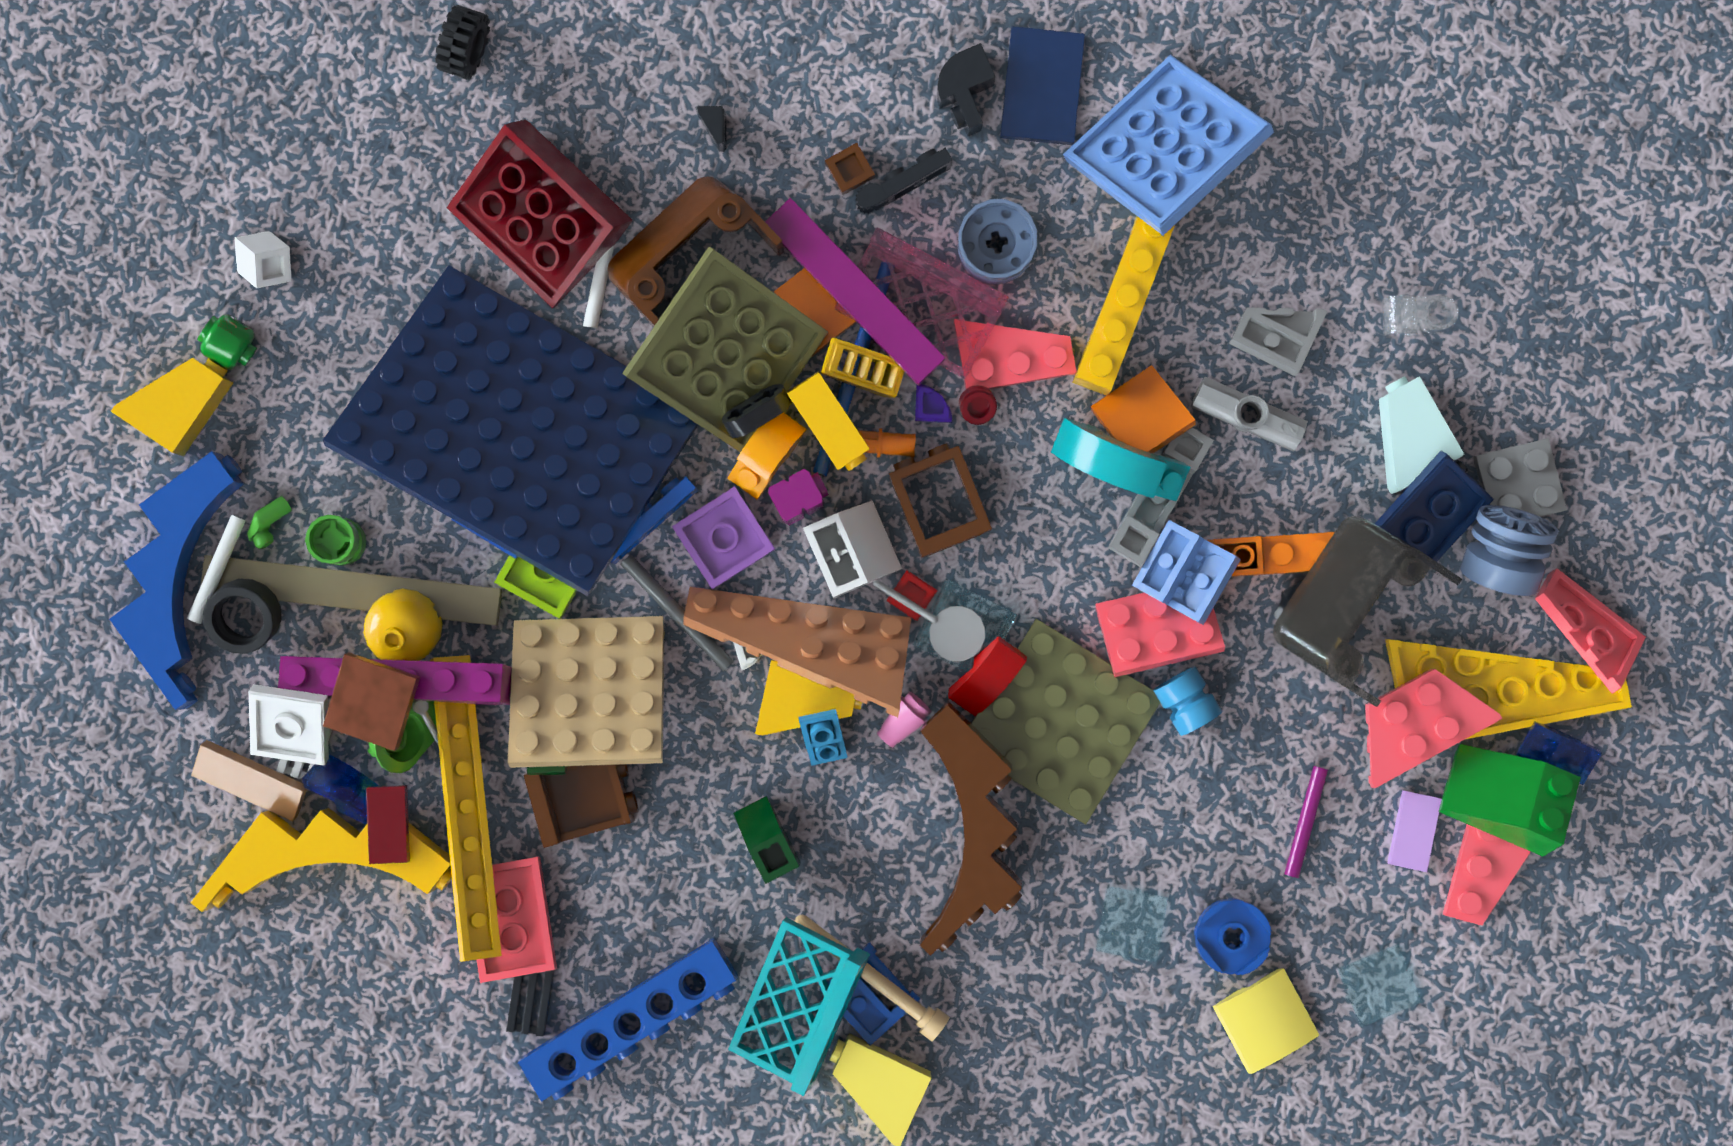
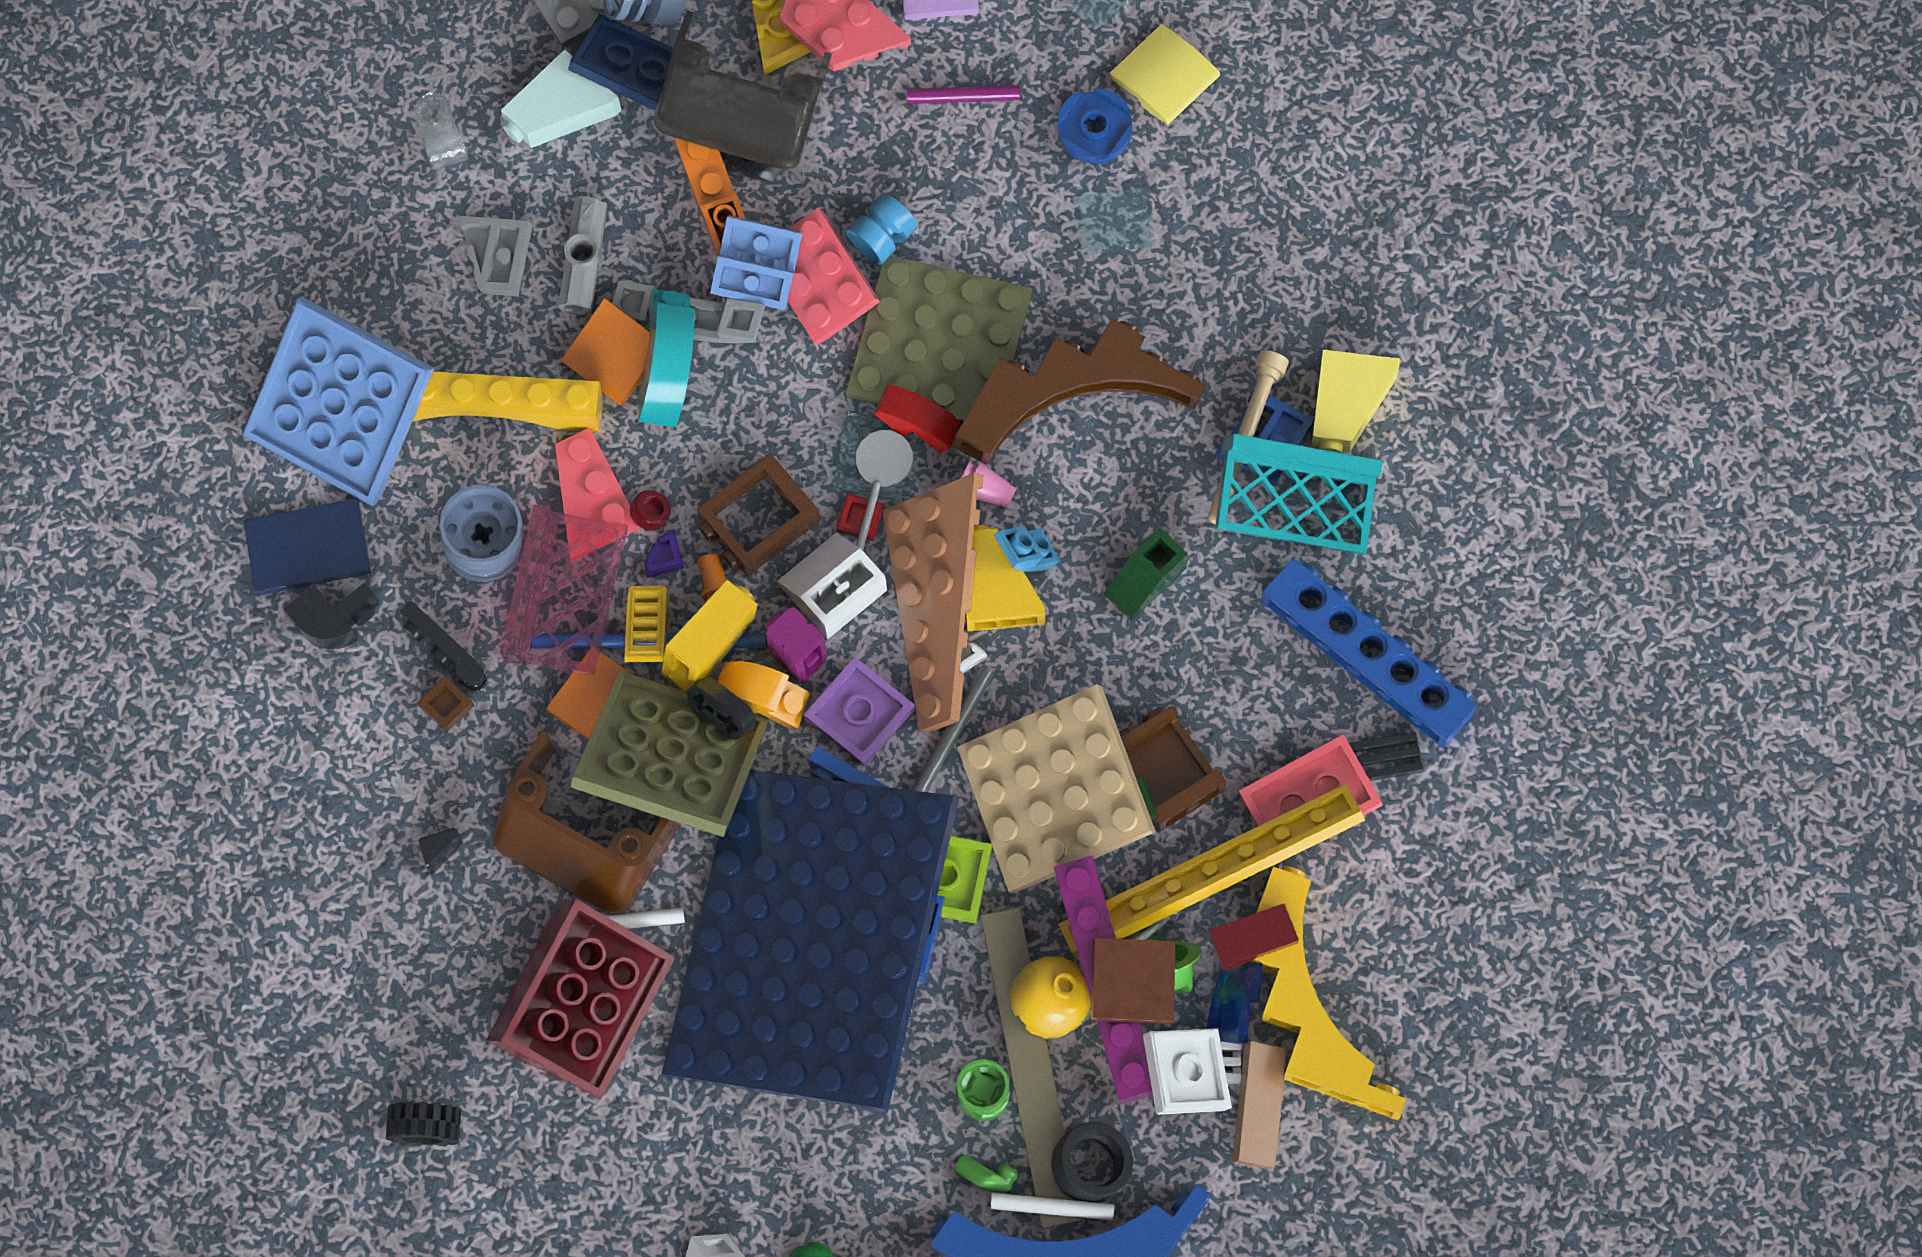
camera: 105 degrees left, 15 degrees down
(855, 292) = (572, 652): magenta tile -> none

